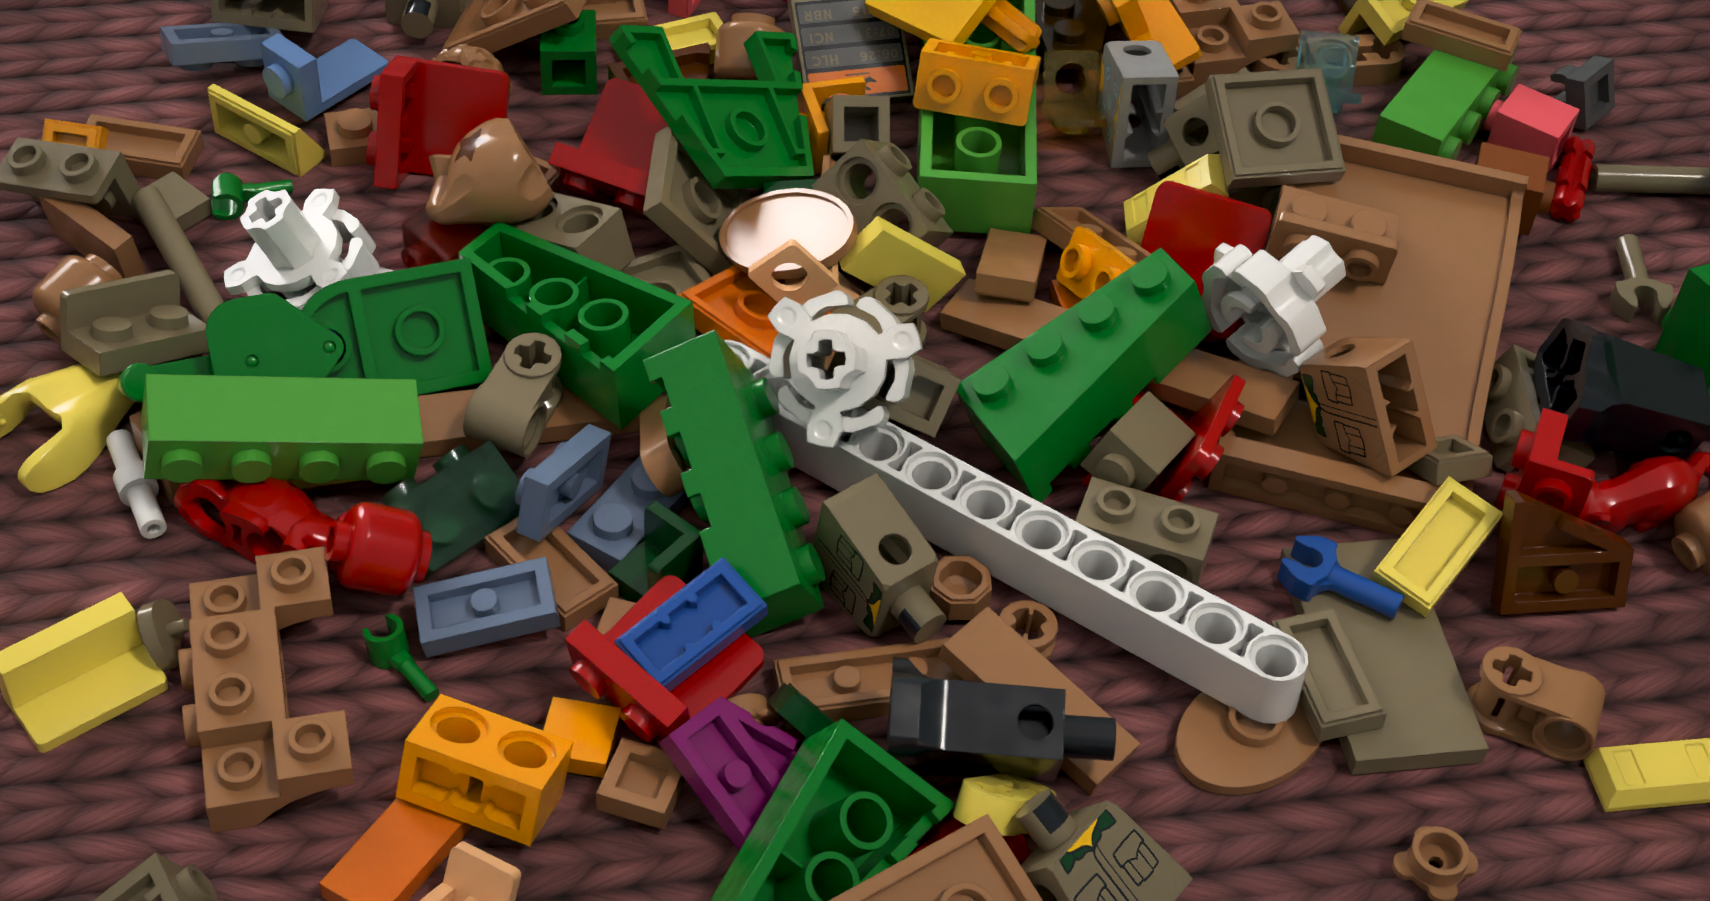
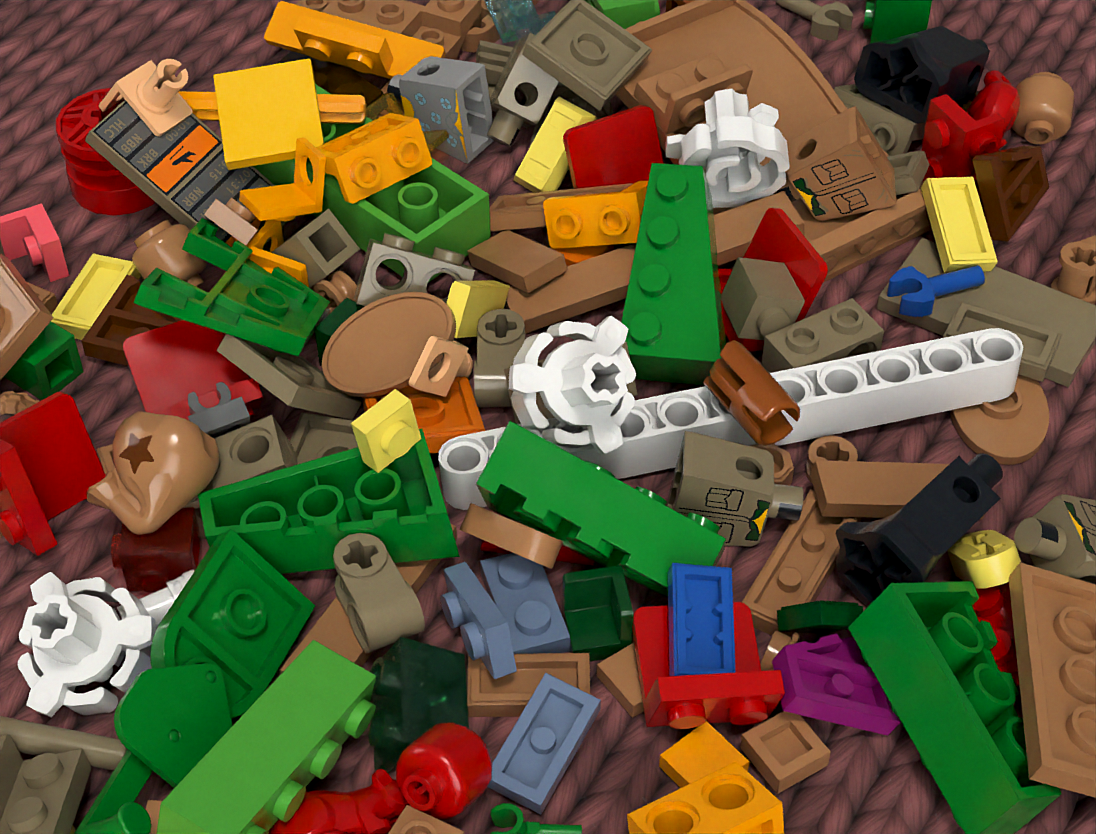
camera: 45 degrees left, 0 degrees up
(585, 183) = (221, 418): none -> dark grey tile
(647, 273) = (386, 431): none -> light yellow plate
(818, 52) = (233, 219): none -> plate
(876, 68) = (292, 199): none -> light orange bracket
(981, 498) = (751, 395): none -> dark orange arm

